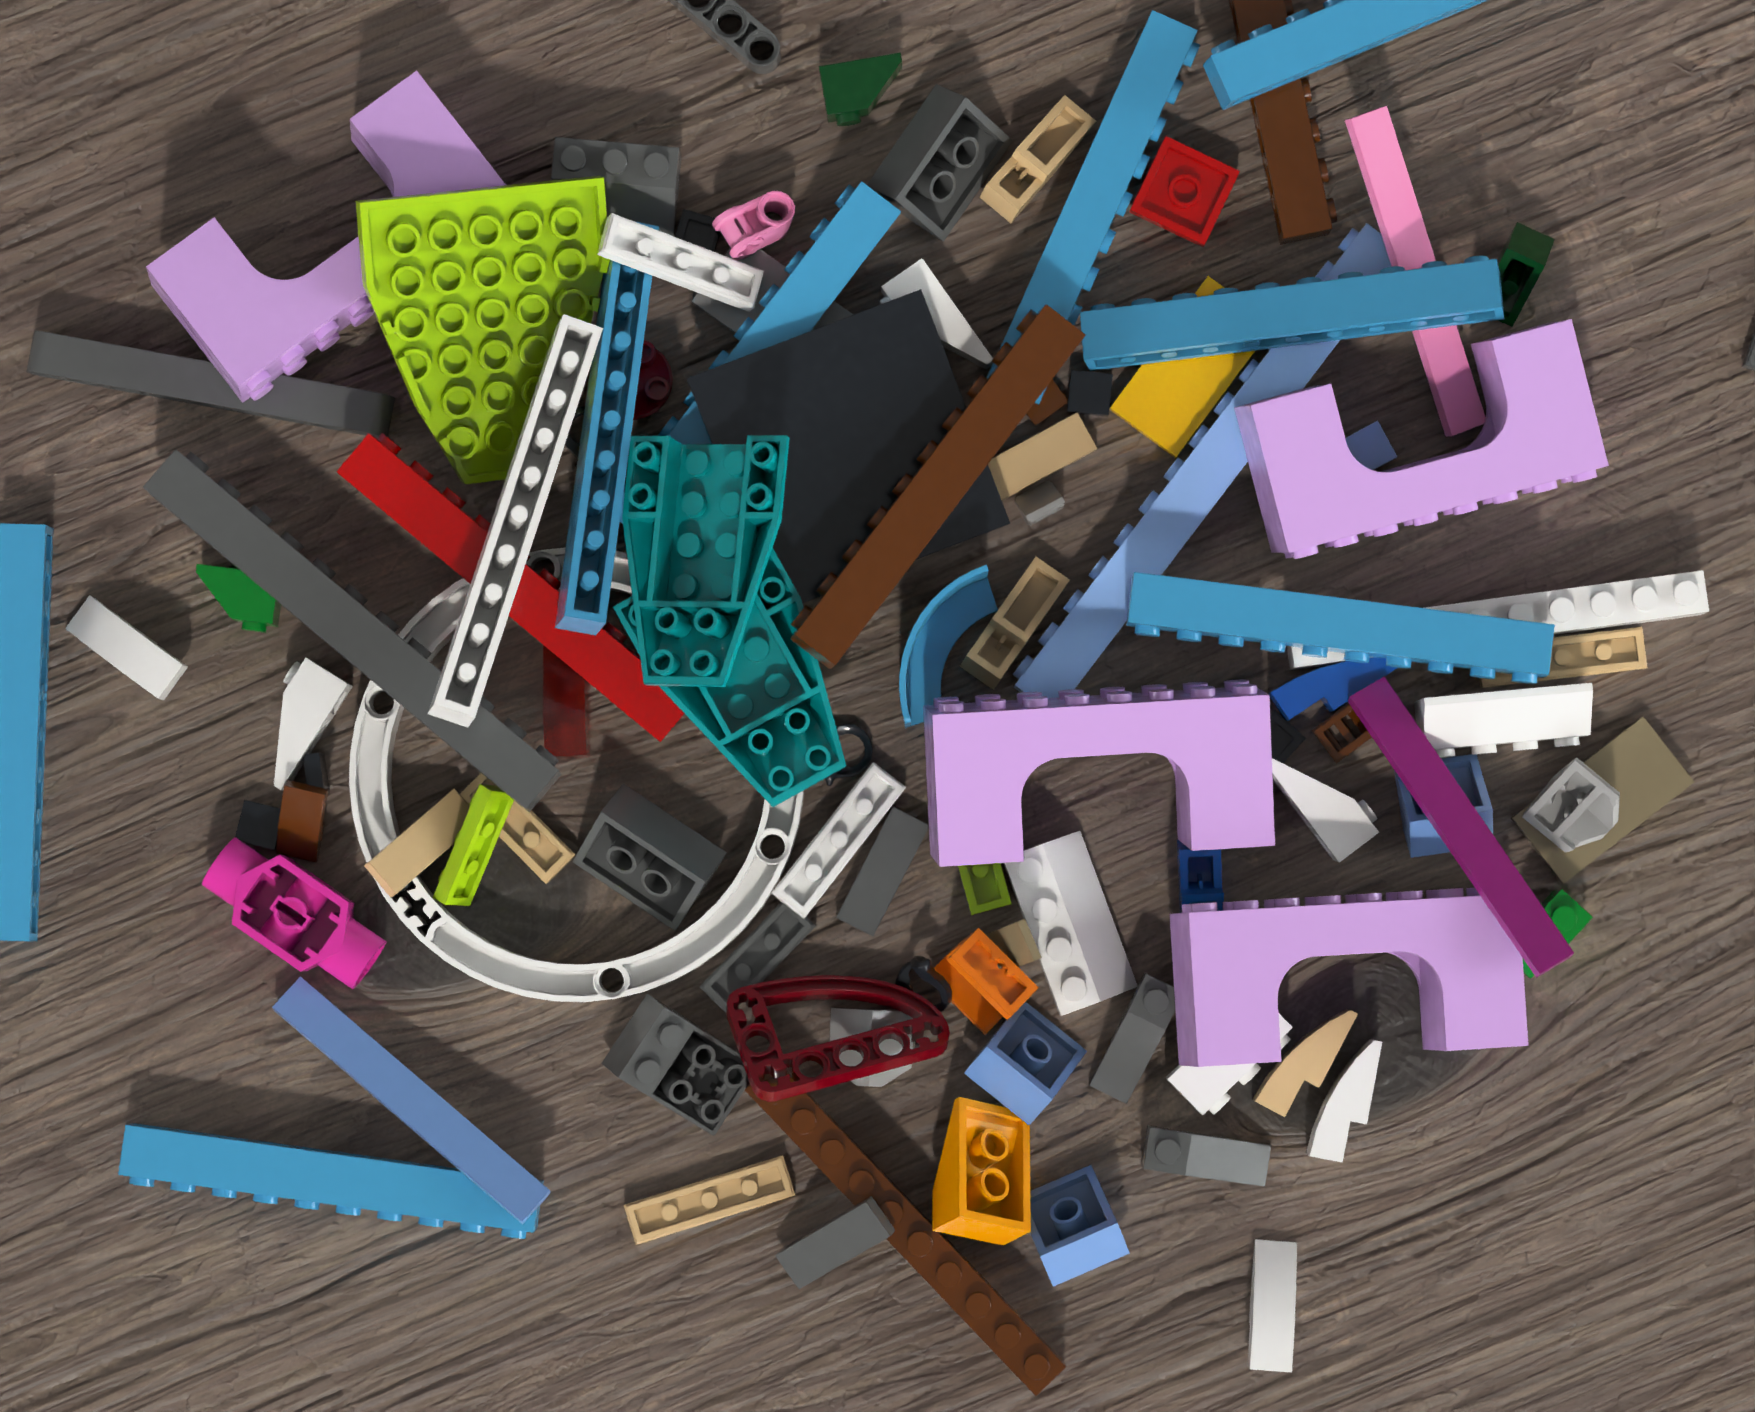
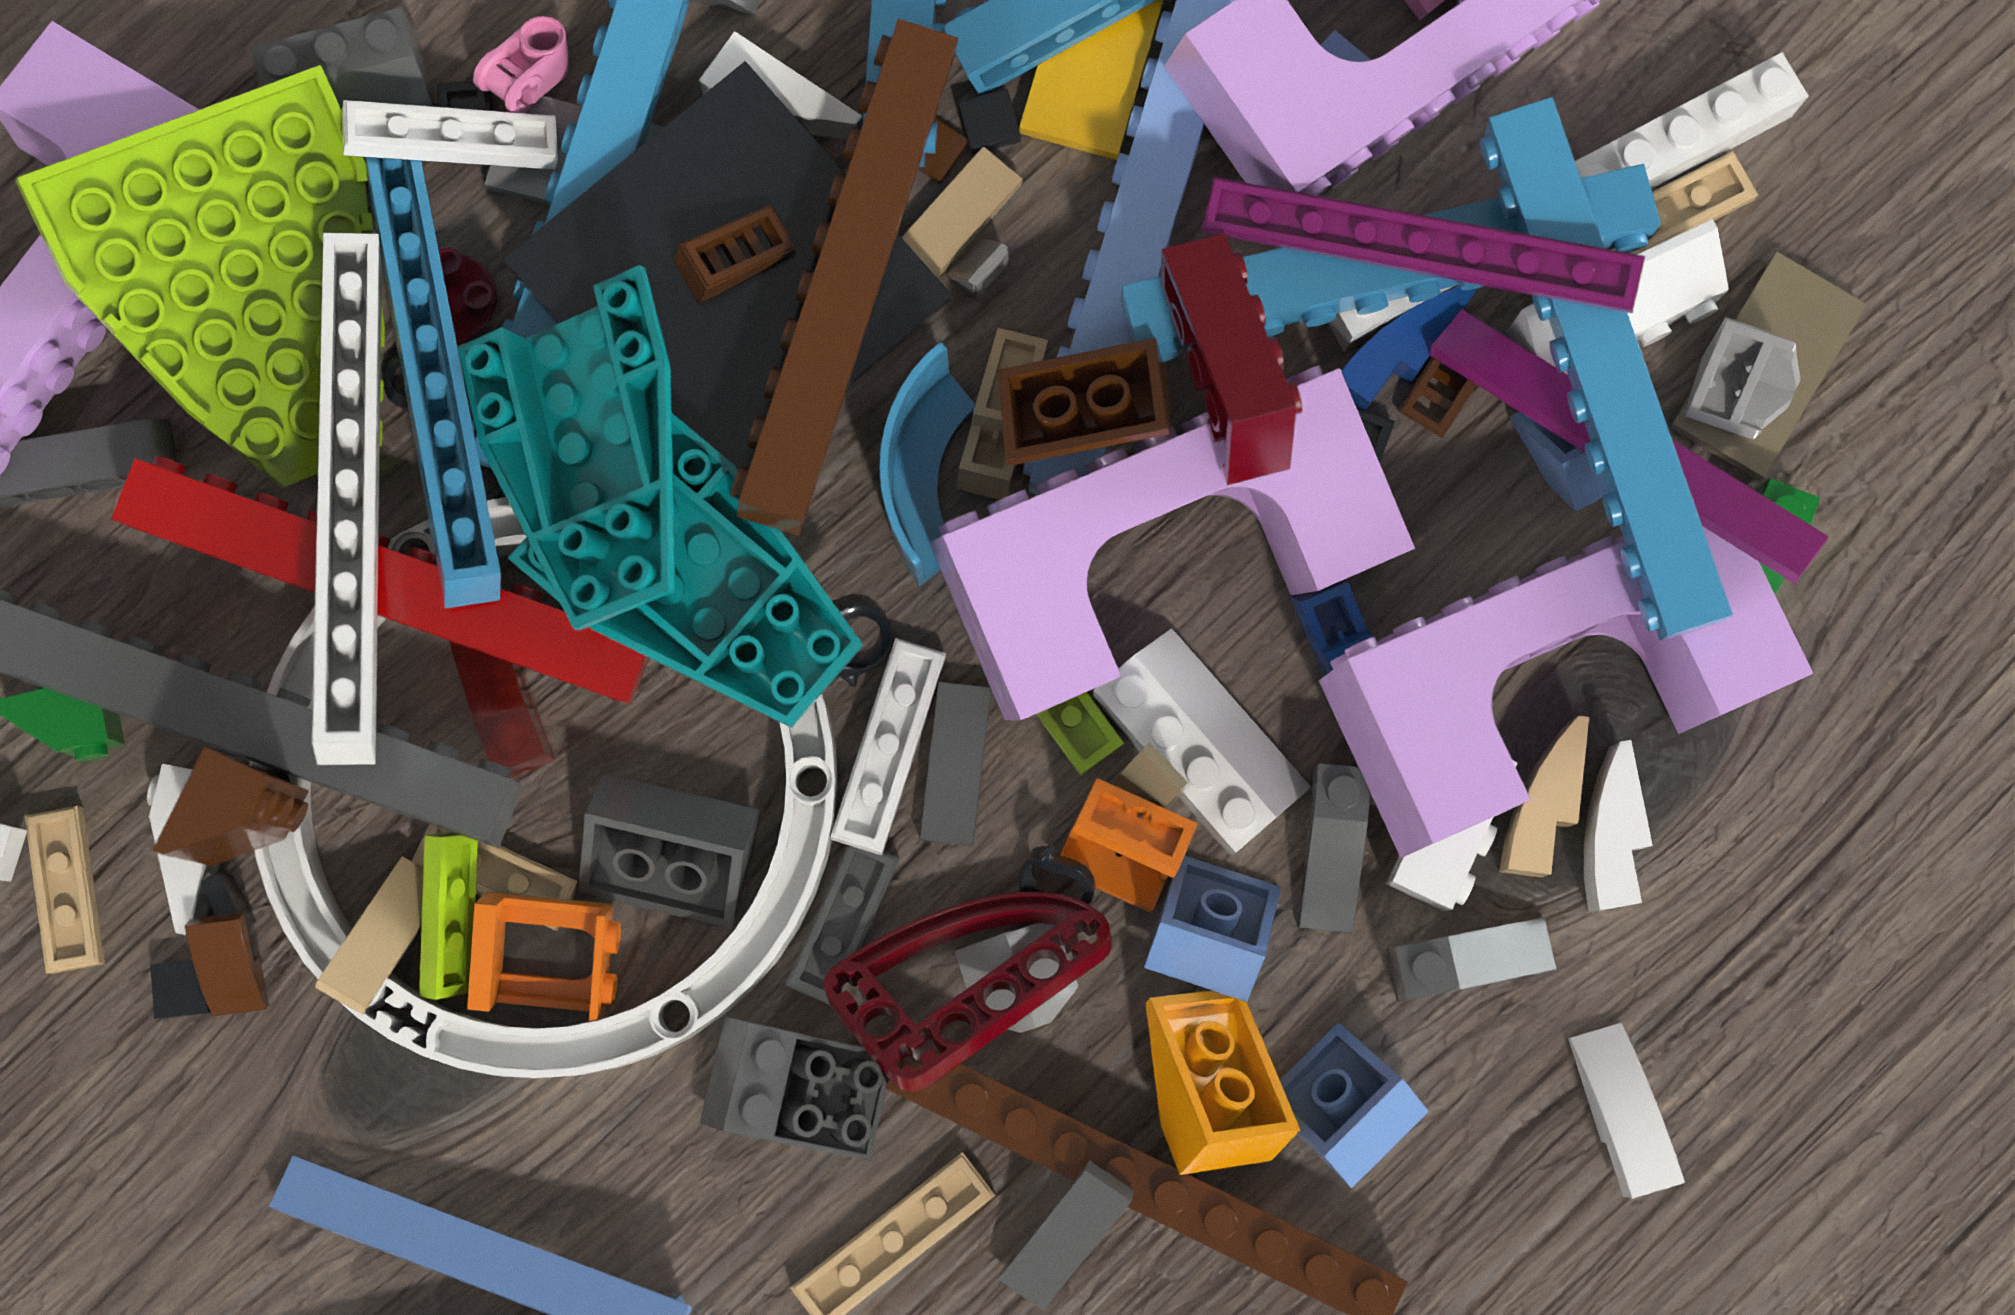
camera: 25 degrees left, 5 degrees down
(199, 719) = (64, 889): none -> tan tile
(293, 913) = (254, 1080): dark pink brick -> none
(353, 718) = (230, 811): none -> reddish brown slope
(547, 937) = (492, 986): none -> orange panel
(825, 442) = (697, 277): none -> reddish brown slope
(1074, 650) = (1084, 401): none -> reddish brown slope
(1190, 660) = (1231, 357): none -> dark red wedge
(1331, 816) = (1458, 496): white slope -> none
(1362, 629) = (1425, 245): none -> magenta tile
(1460, 770) = (1609, 385): none -> dark azure brick

